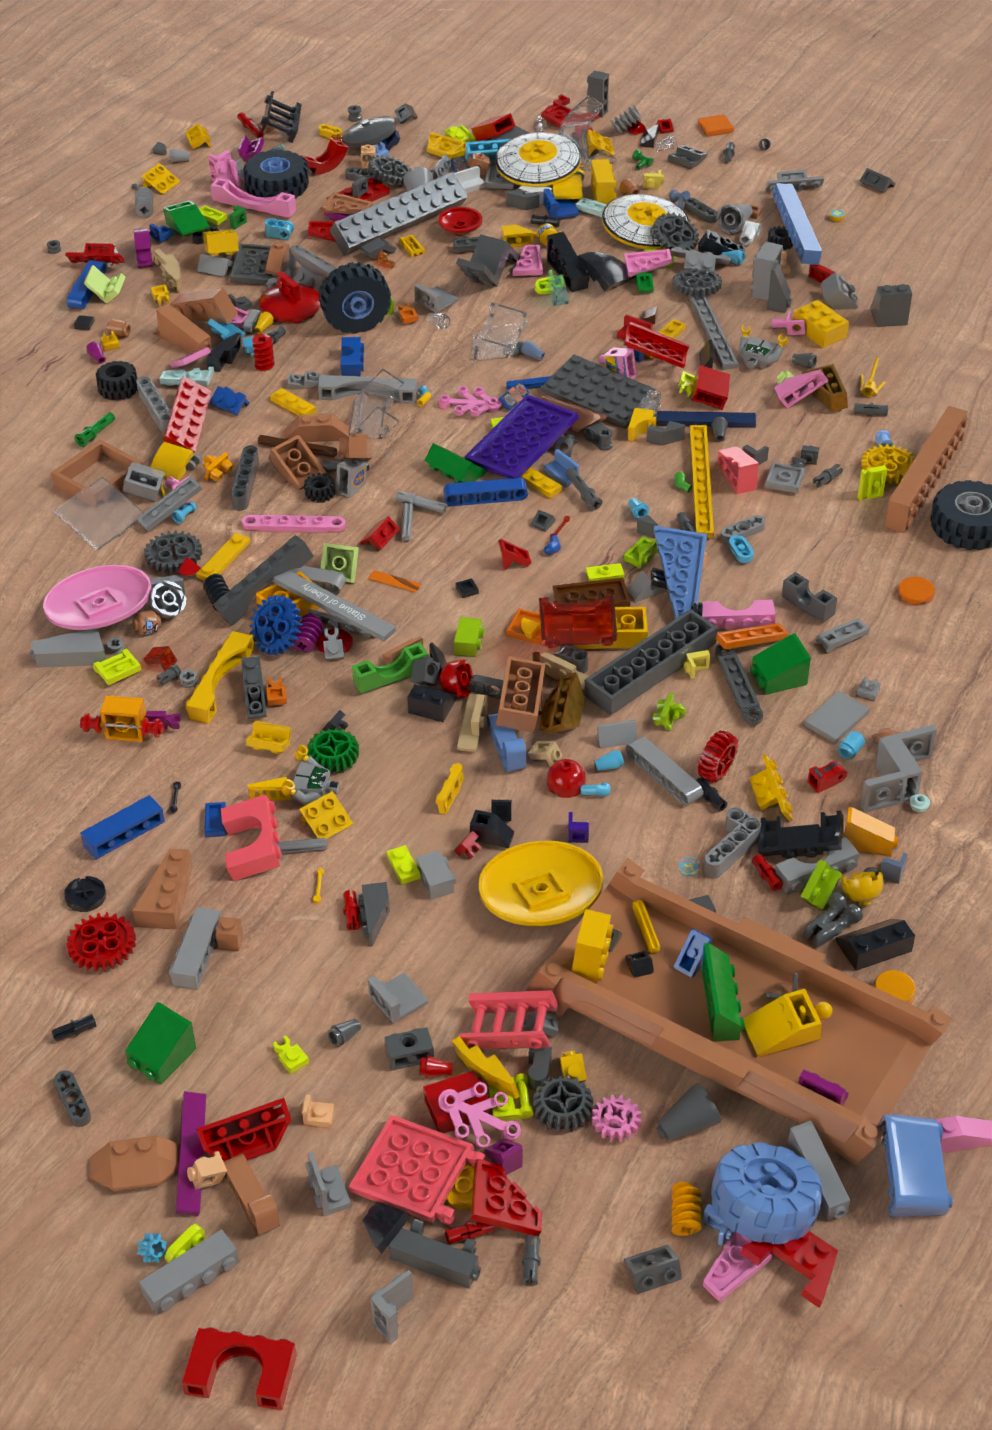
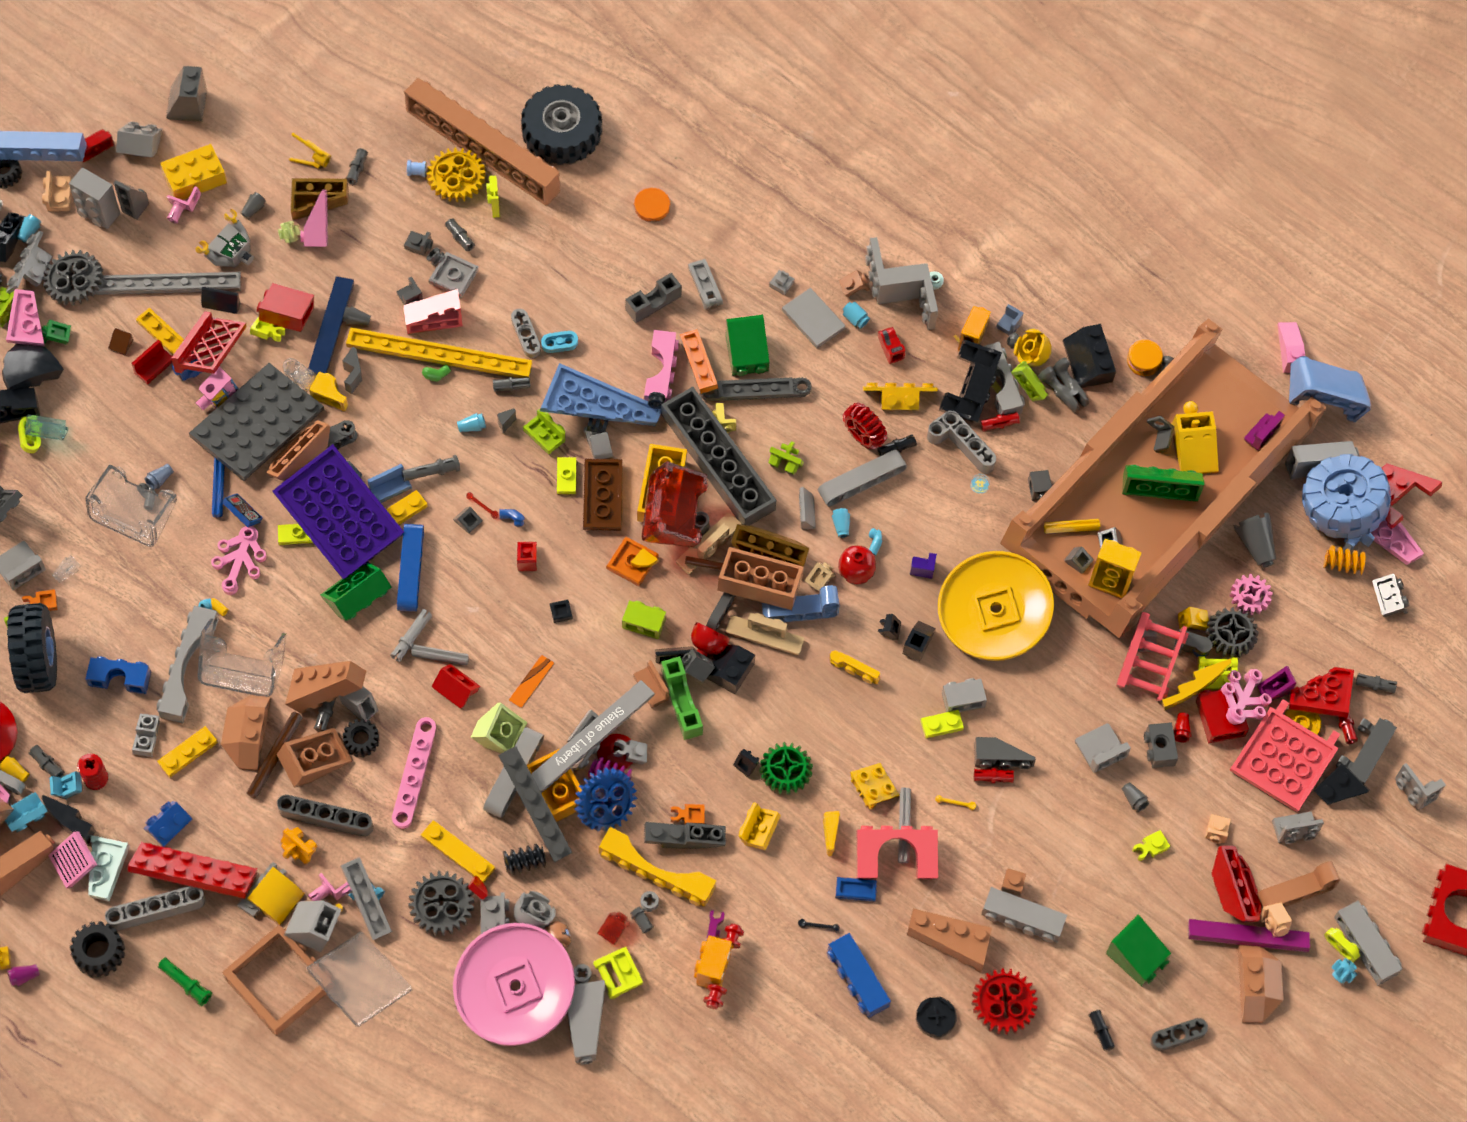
camera: 85 degrees left, 20 degrees up
(310, 780) = (828, 792): torso -> none
(467, 844) = (929, 663): red tile -> none
(691, 955) = (1113, 494): slope -> none

